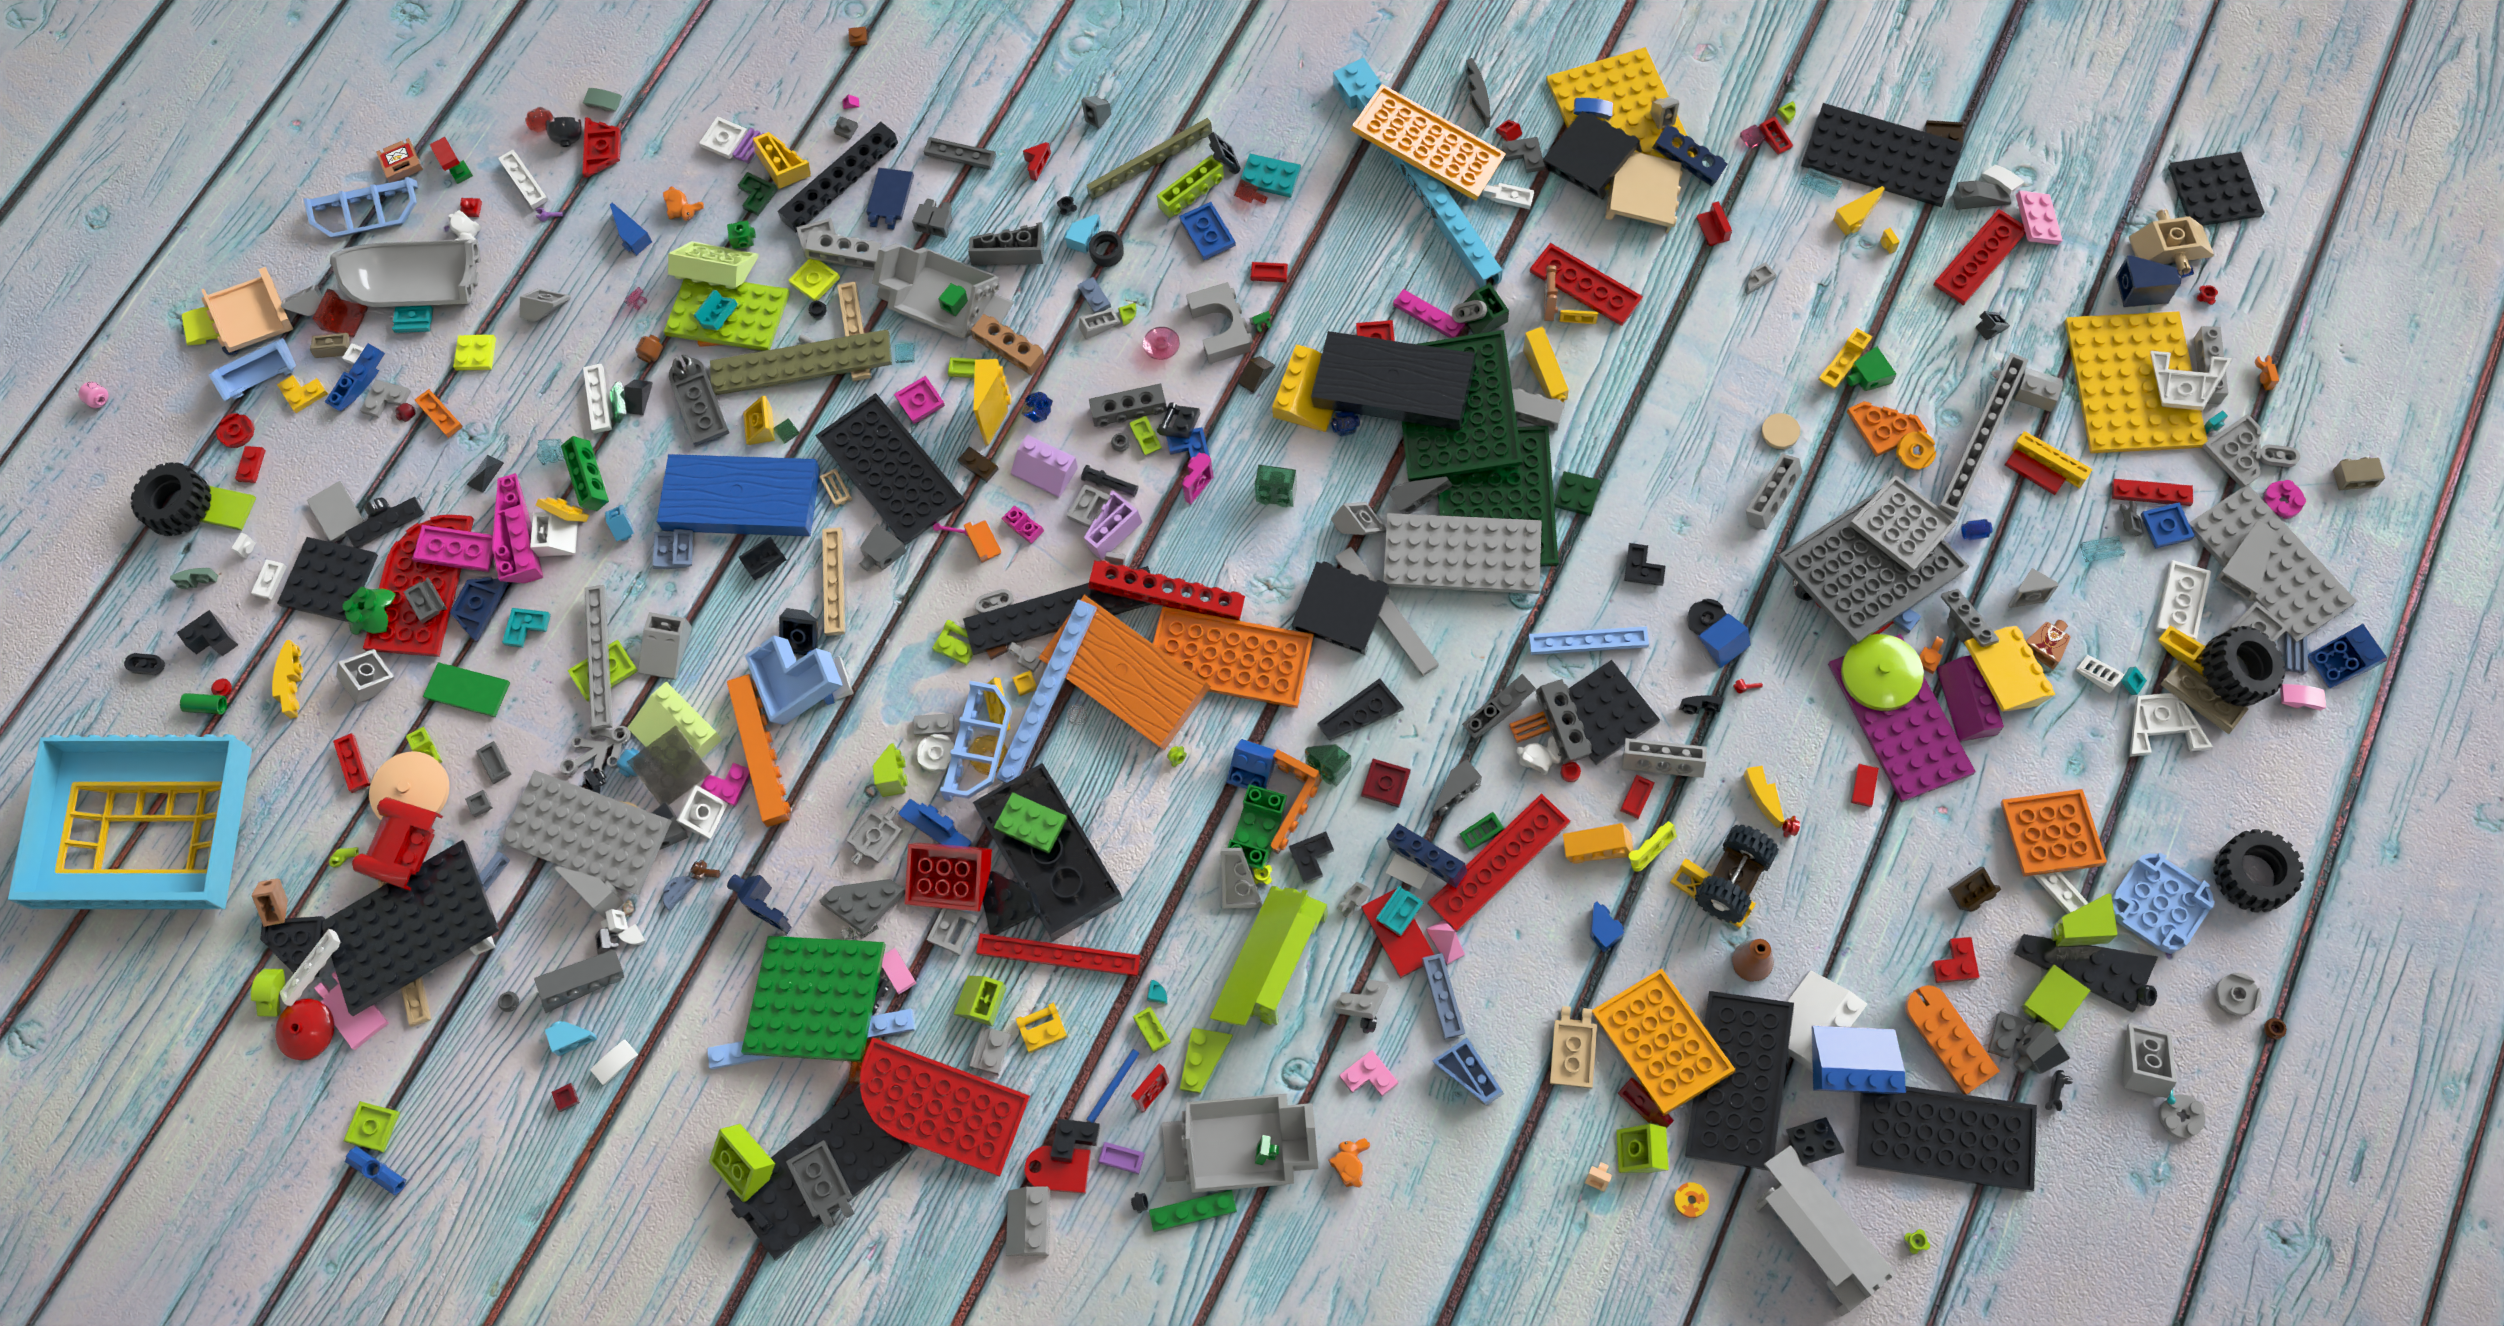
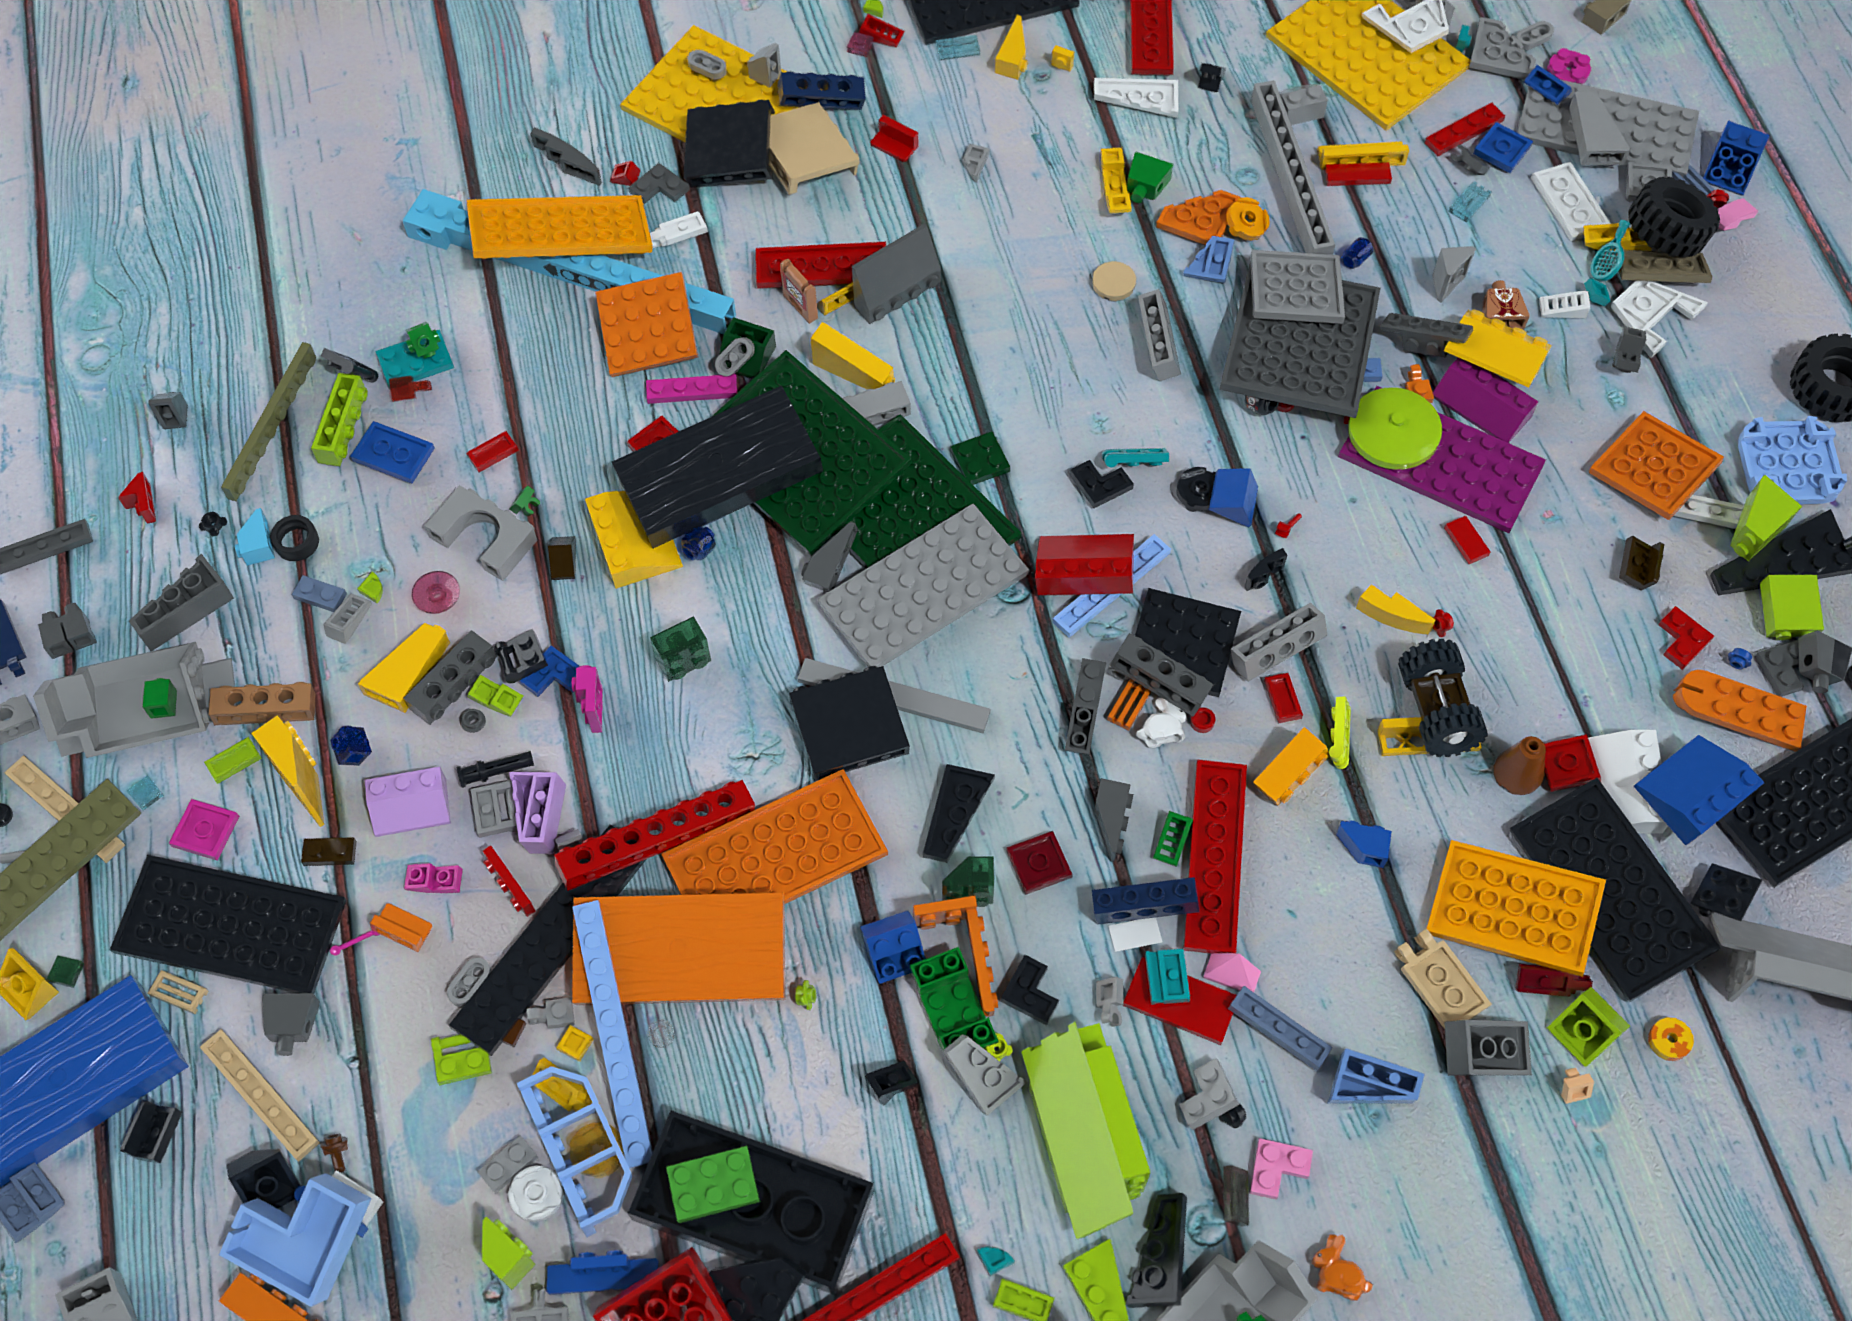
camera: 45 degrees left, 5 degrees down
(850, 641) = (334, 1145): none -> reddish brown plate
(1061, 557) = (507, 882): none -> red plate
(1108, 379) = (405, 667): none -> yellow slope
(1181, 843) = (891, 1081): none -> black slope
(1245, 1075) = (1161, 1267): none -> black wing
(1282, 160) = (419, 332): none -> green brick
(1327, 1070) = (1236, 1196): none -> clear smoke plate
(1357, 519) = (790, 627): light grey slope -> none
(1431, 250) = (646, 324): none -> orange plate
(1563, 1110) = (1487, 1048): none -> dark grey slope
(1581, 613) = (1085, 564): none -> red slope
(1597, 107) = (691, 100): blue slope -> none
(1624, 325) = (895, 274): none -> dark grey slope
(1627, 86) = (709, 64): none -> light grey plate
(1682, 564) = (1134, 457): none -> teal plate
(1790, 980) = (1569, 763): none -> red plate
(1863, 464) = (1212, 261): none -> medium blue wing
(1927, 307) = (1140, 94): none -> white wing
(1982, 1005) = (1740, 658): none -> blue plate
(2113, 739) = (1629, 350): none -> dark grey brick
(2169, 654) = (1614, 244): none -> teal piece
(2247, 501) = (1547, 85): none -> blue slope
(2302, 676) = (1718, 197): none -> red plate

